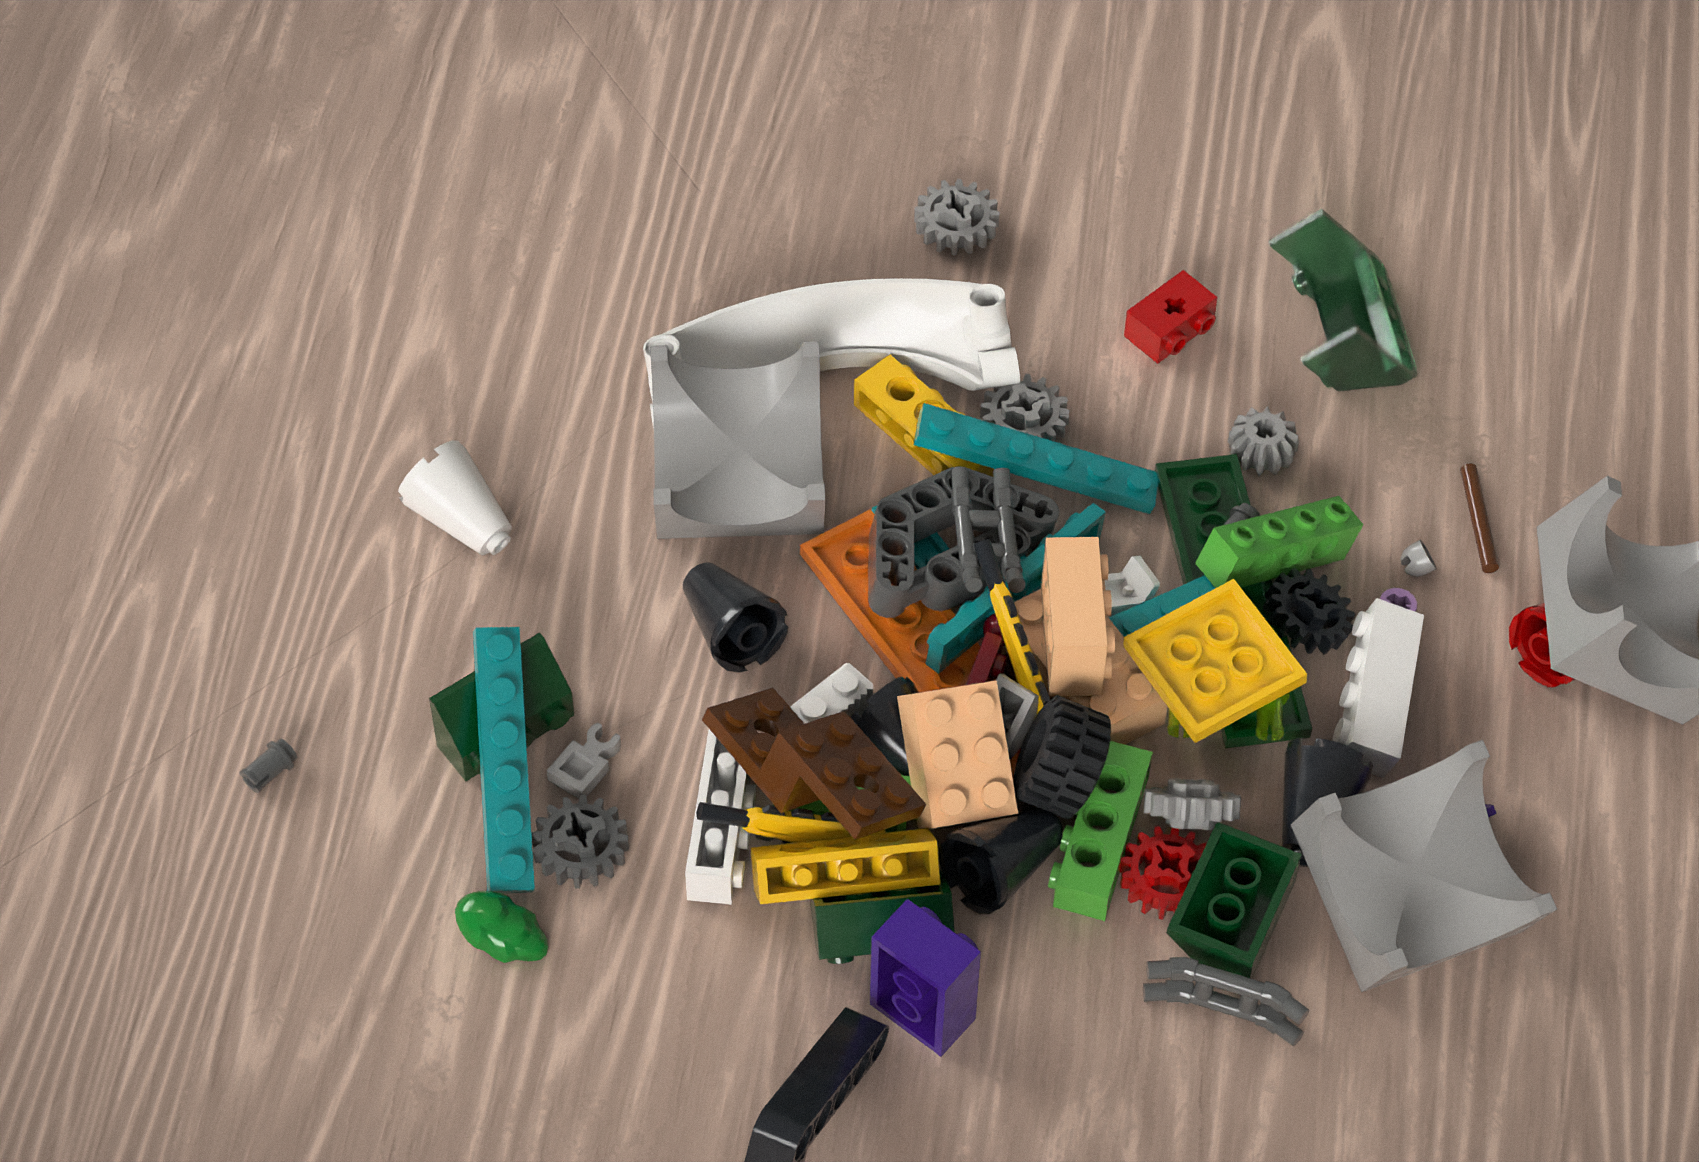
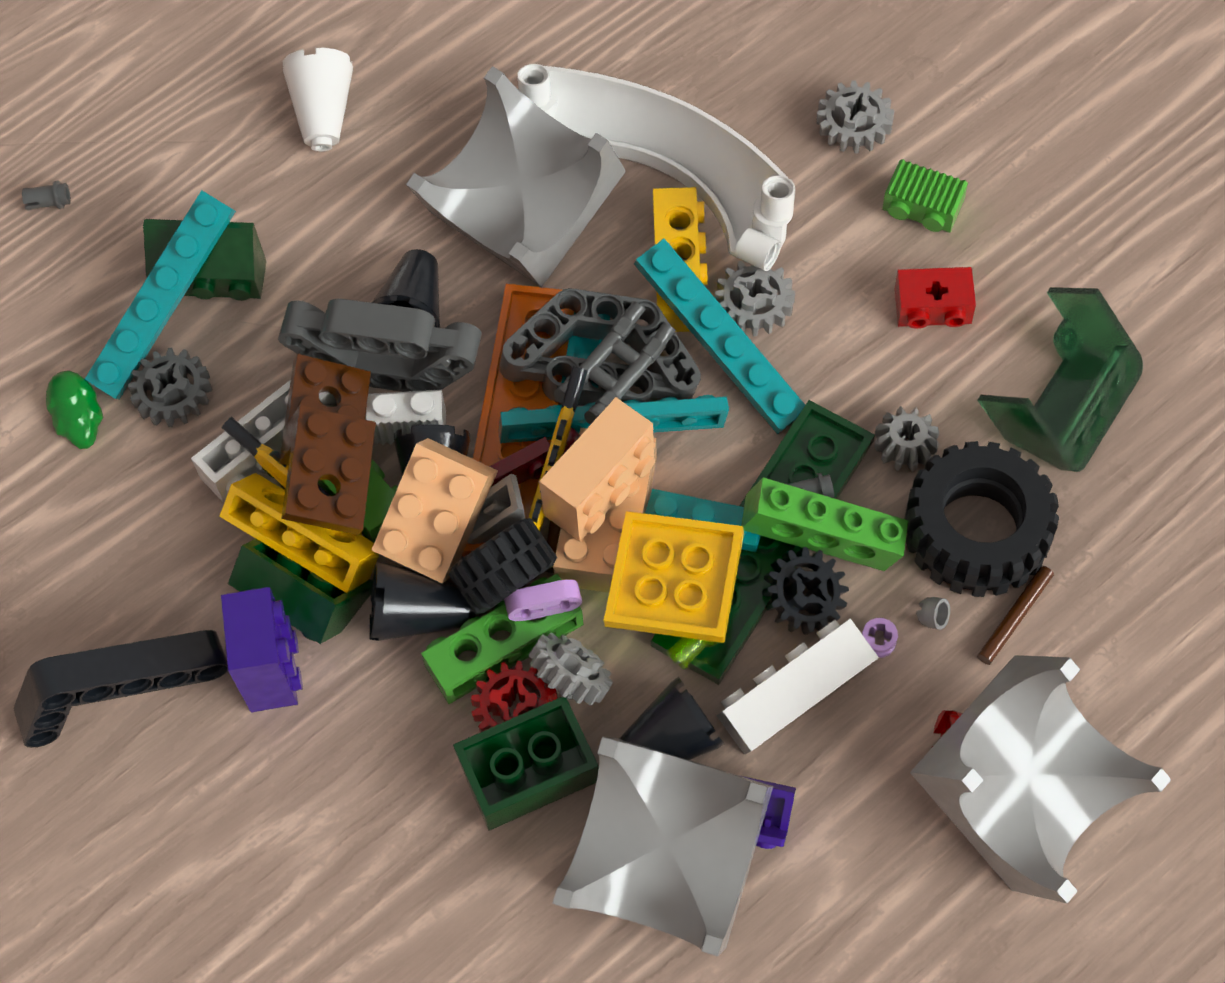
camera: 45 degrees right, 10 degrees up
(583, 767) = (222, 336): light grey plate -> none
(777, 645) = (388, 340): none -> dark grey piece
(1080, 243) = (924, 196): none -> bright green brick
(1123, 760) = (543, 600): none -> lavender beam
(1131, 585) = (690, 476): white bracket -> none
(1274, 999) = (441, 789): dark grey piece -> none
(1395, 418) = (993, 475): none -> black tyre

